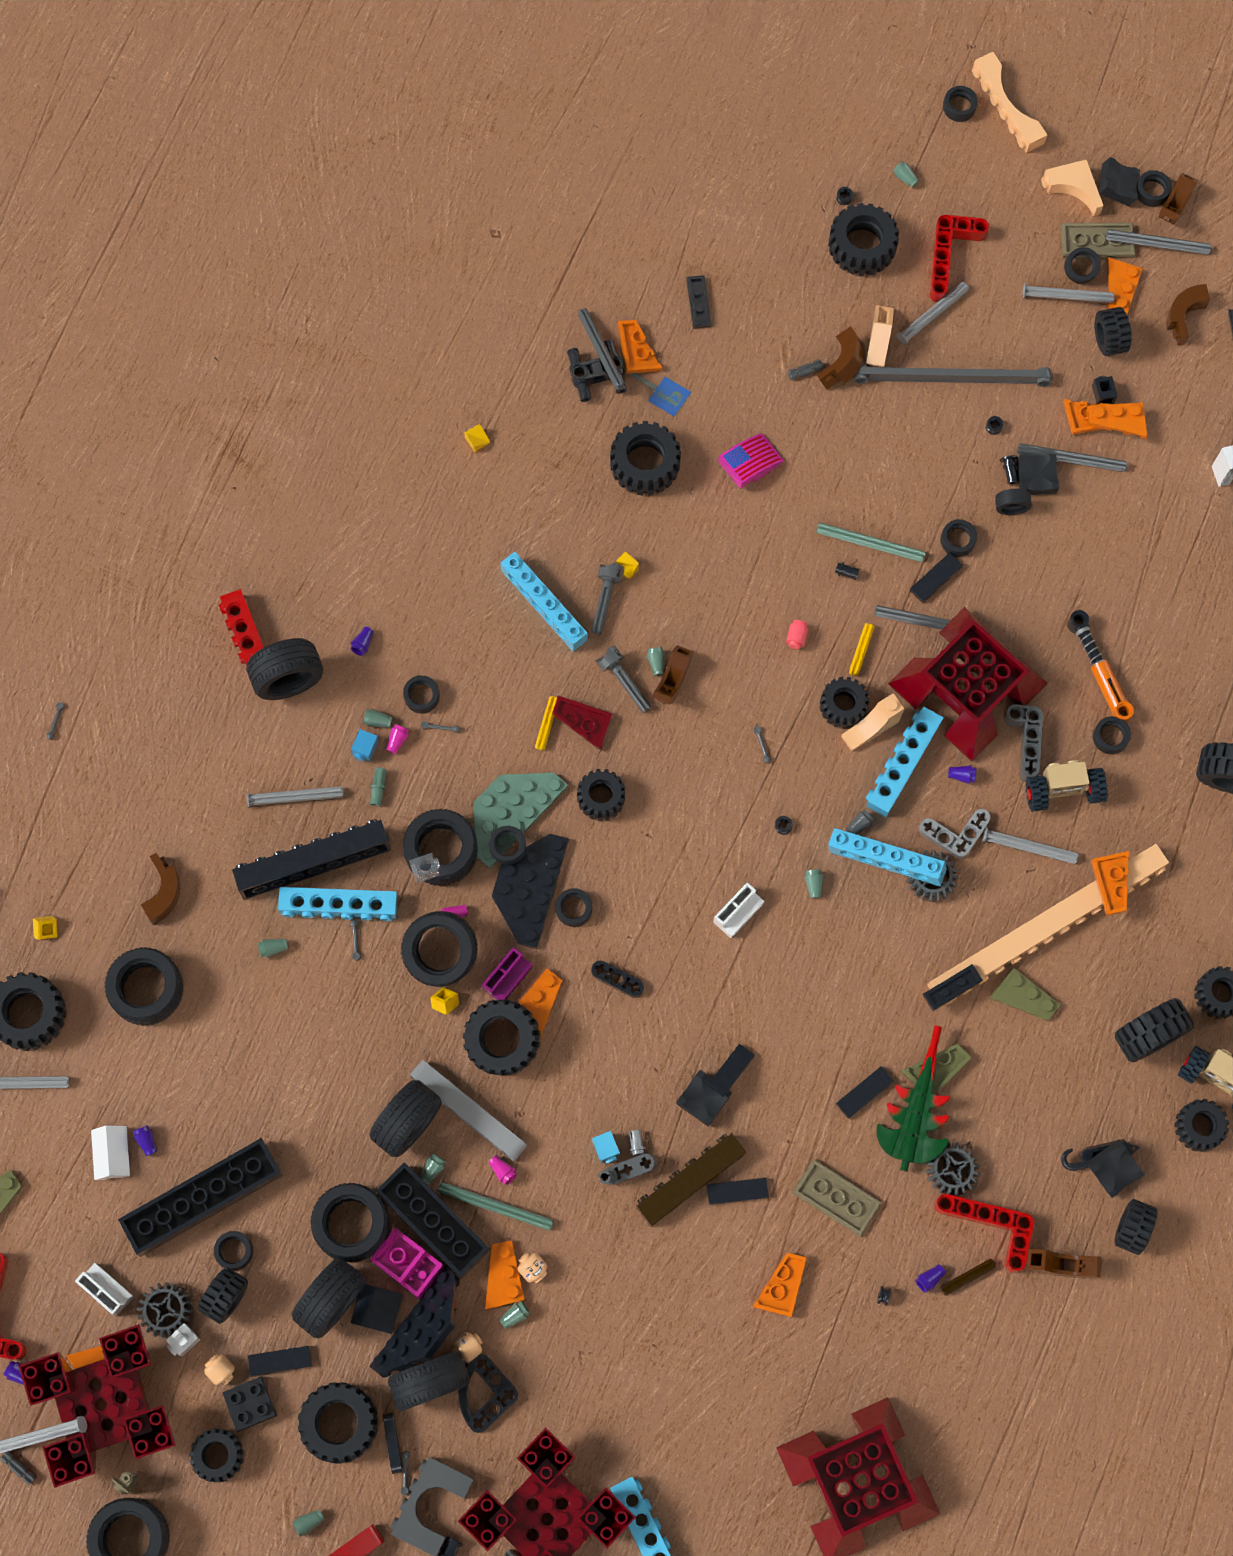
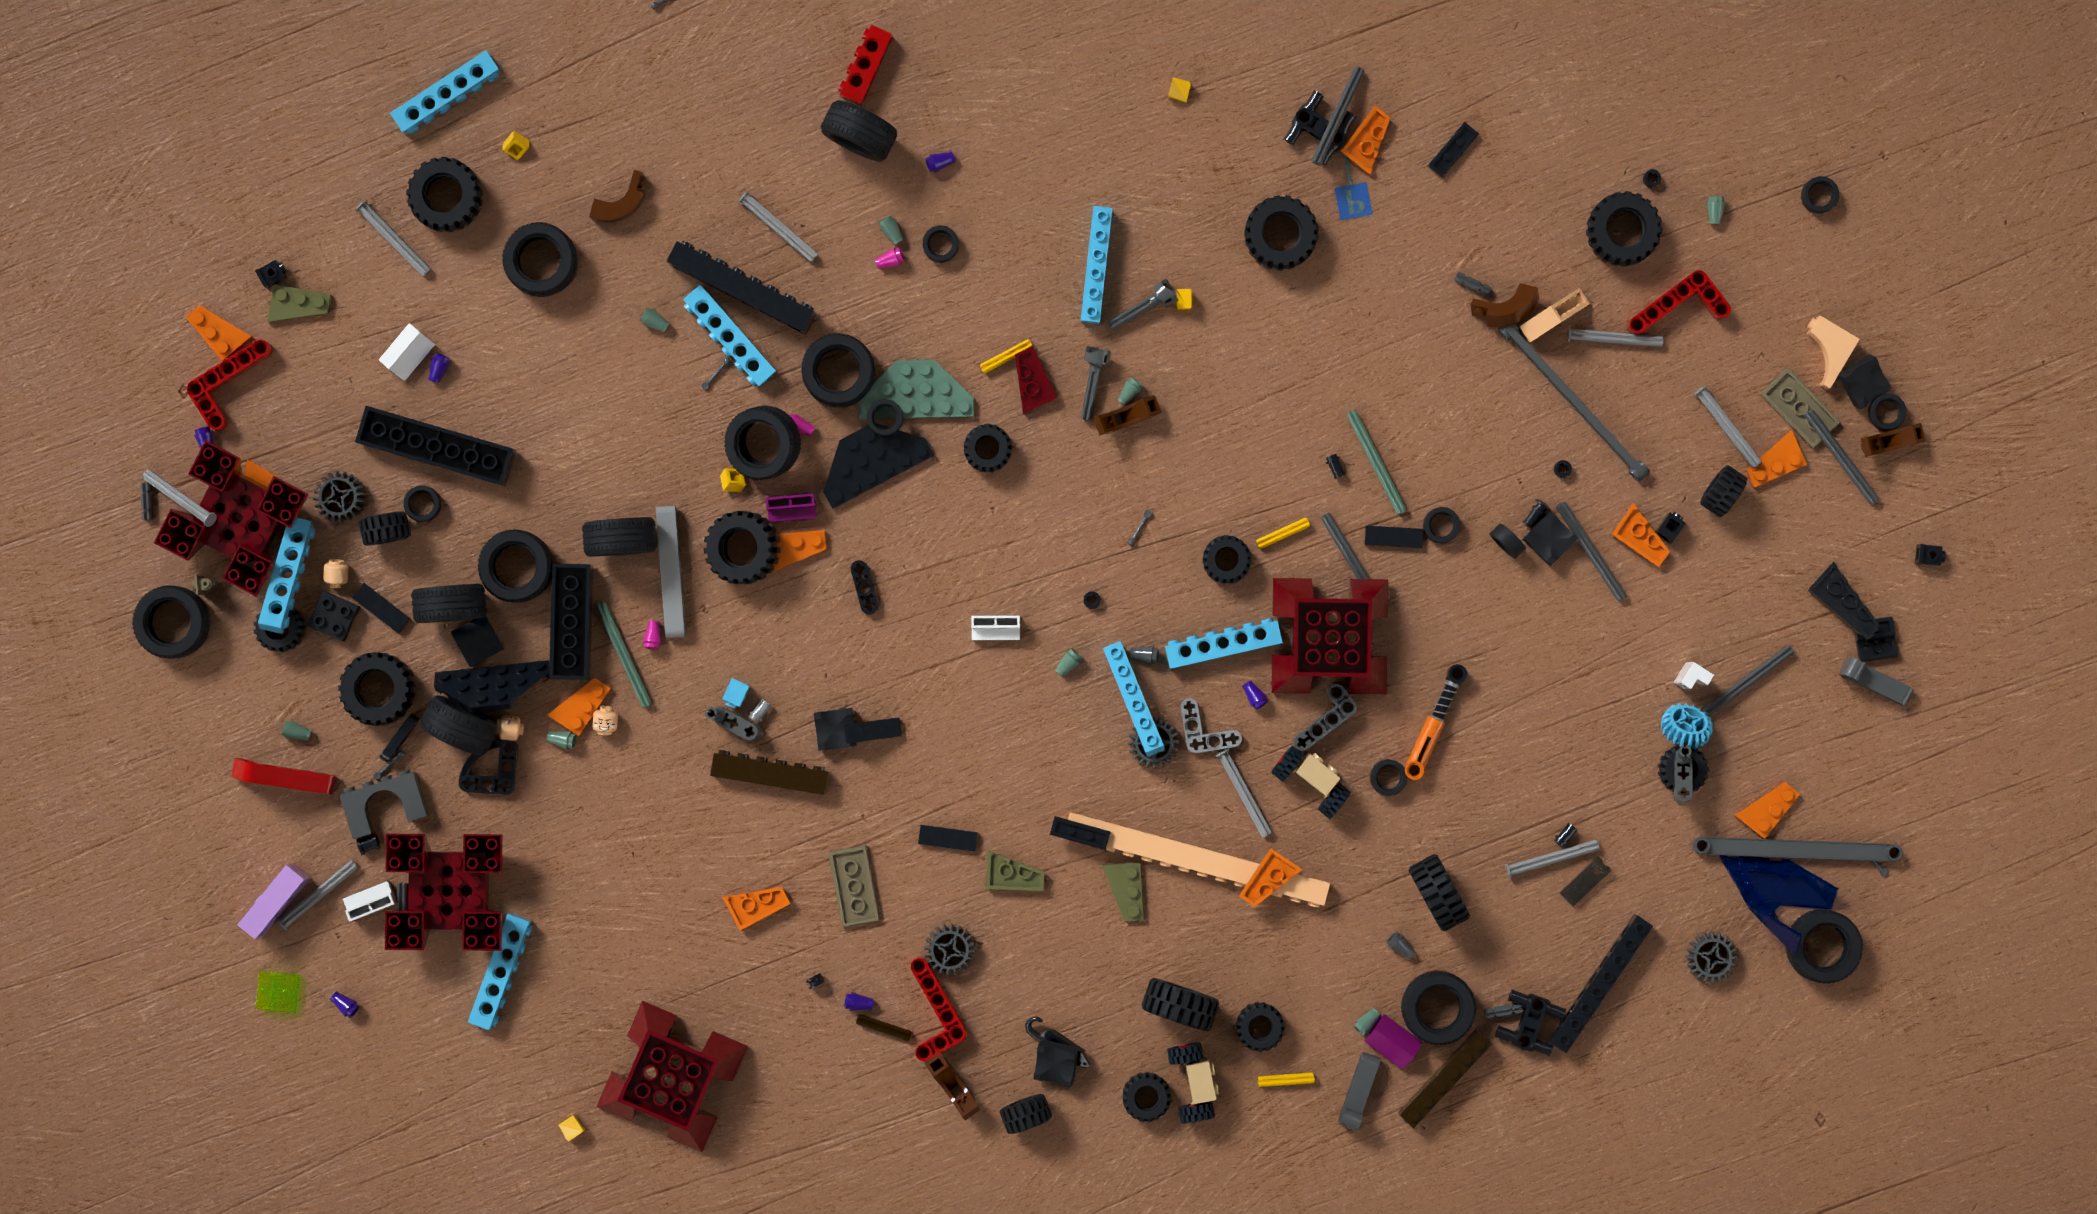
camera: 50 degrees right, 15 degrees up
(104, 1289) = (313, 441): white piece -> none
(182, 1340) = (331, 528): white brick -> none
(211, 1448) = (277, 622): none -> medium azure brick
(364, 746) = (861, 241): dark azure brick -> none
(377, 787) = (841, 280): sand green axle -> none
(407, 1263) = (527, 632): dark pink slope -> none
(421, 875) = (801, 371): clear brick -> none
(424, 725) = (939, 294): dark grey hinge -> none
(432, 1168) = (609, 585): sand green cone -> none
(573, 892) = (871, 507): black tyre -> none
(737, 1191) = (793, 813): black tile -> none
(750, 460) = (1357, 312): slope -> none
(797, 634) = (1248, 475): coral brick -> none
(881, 718) = (1228, 595): light nougat arch -> none
(911, 1141) = (940, 901): dark green animal -> none
(1027, 130) = (1845, 271): light nougat arch -> none
(1095, 261) = (1767, 402): black tyre -> none
(1120, 417) = (1656, 559): orange wing -> none
(1188, 300) = (1813, 524): reddish brown arch -> none

